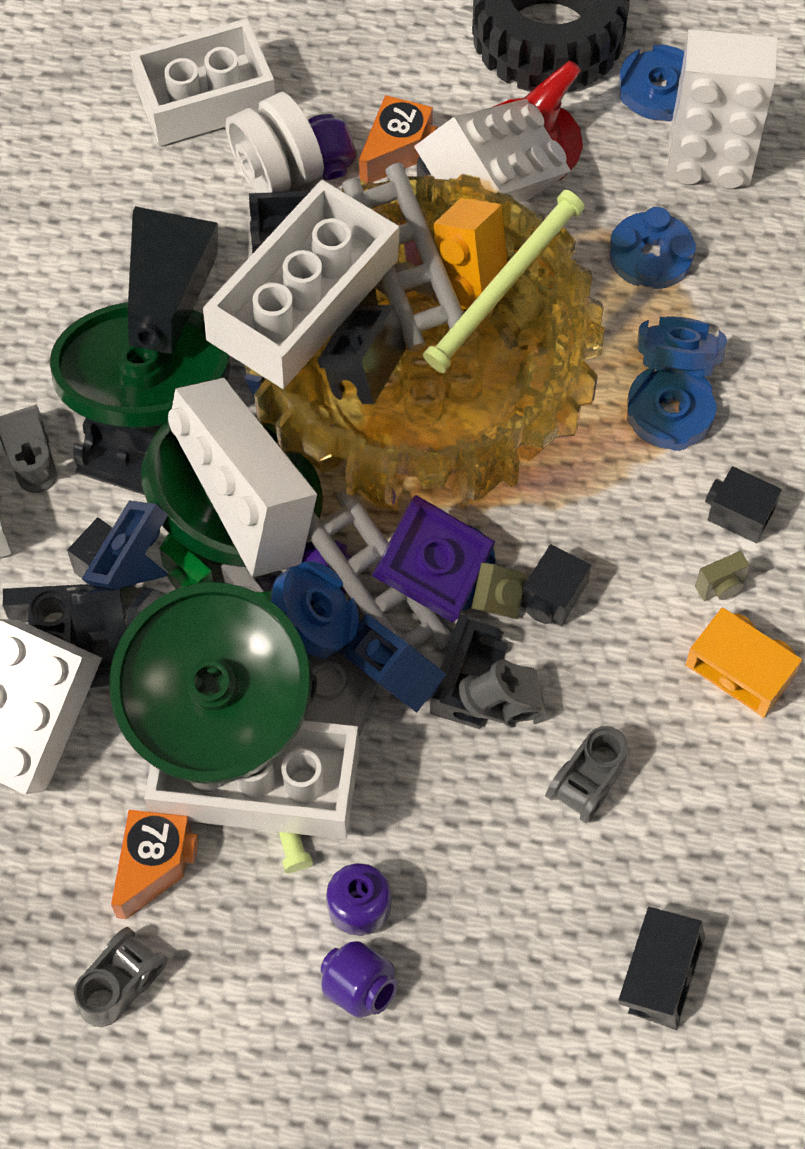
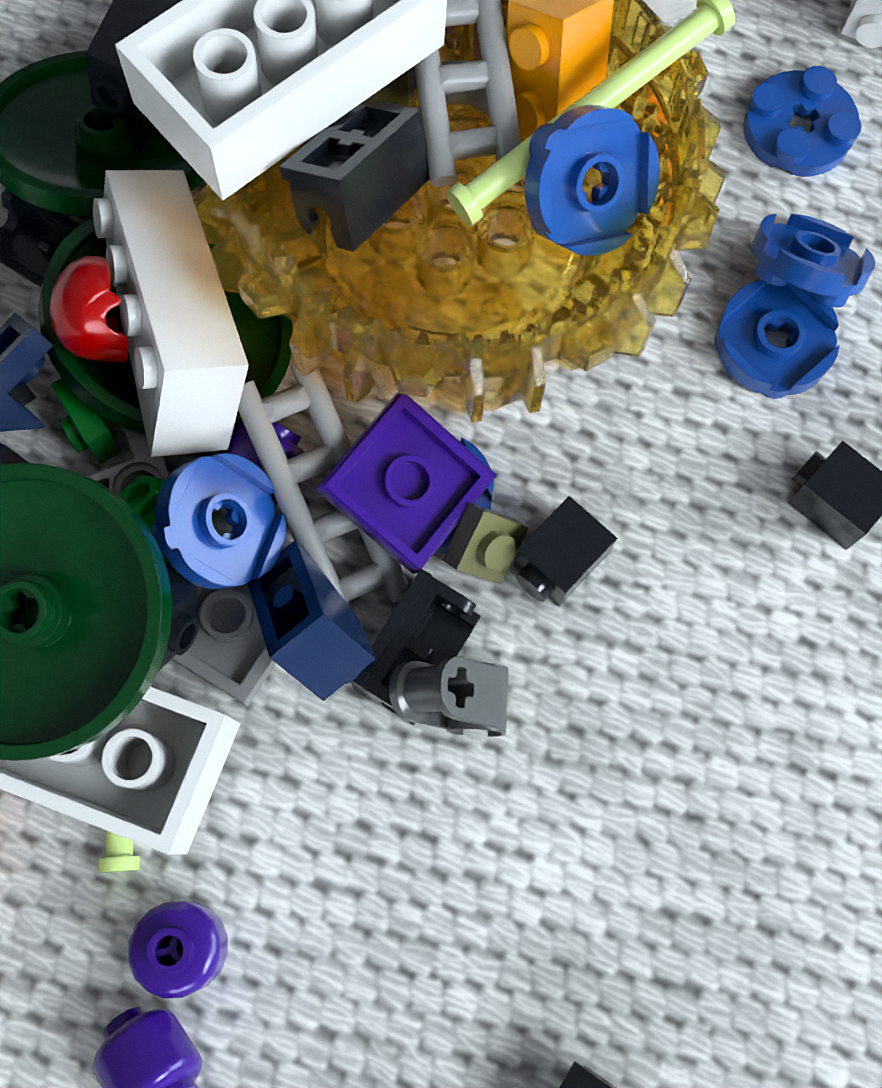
camera: 10 degrees right, 10 degrees up
(189, 485) = (80, 310): none -> red hair
(494, 323) = (556, 171): none -> blue plate
(586, 780) = (541, 838): dark grey piece -> none
(723, 577) = (793, 592): olive plate -> none
(743, 661) = (795, 721): light orange brick -> none

